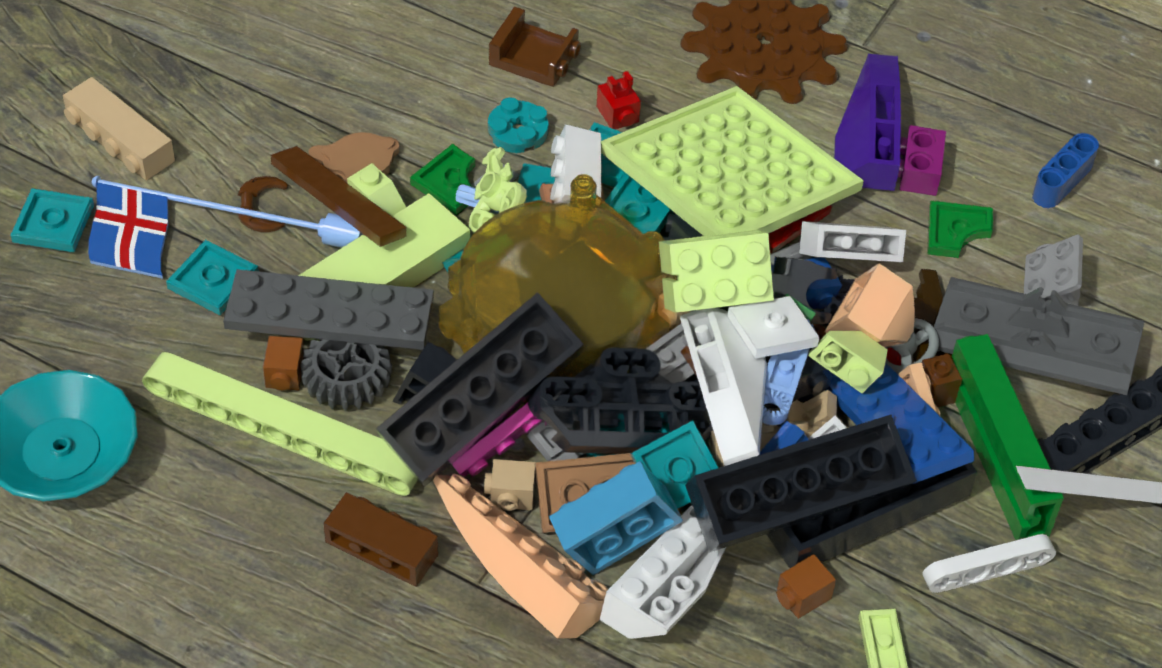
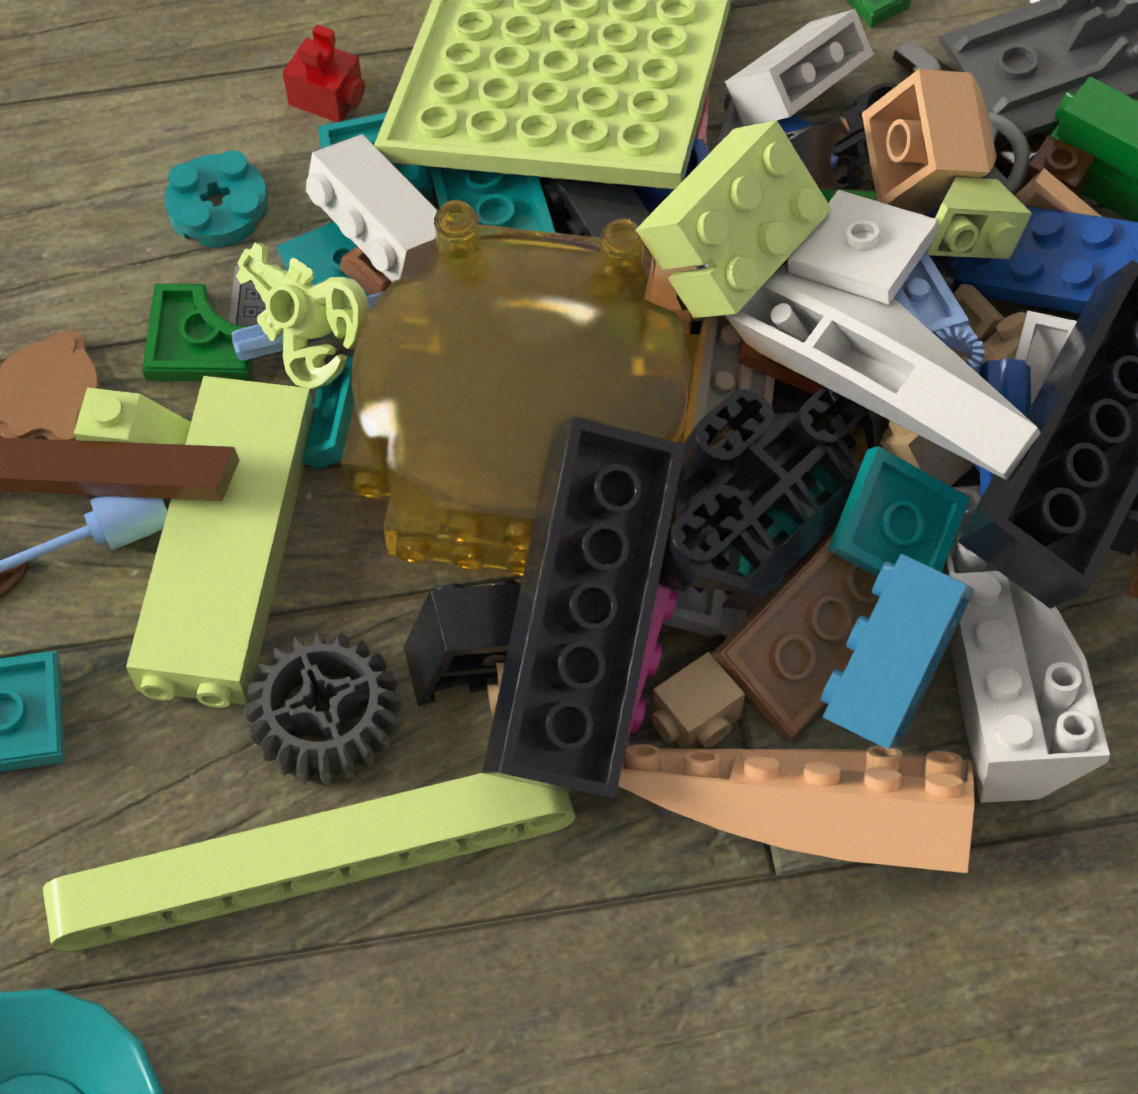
camera: 35 degrees left, 10 degrees up
(283, 363) = (230, 765): dark orange brick -> none
(329, 309) = (231, 644): dark grey plate -> none
(381, 539) = (606, 914): reddish brown brick -> none
(532, 50) = (139, 81): reddish brown panel -> none

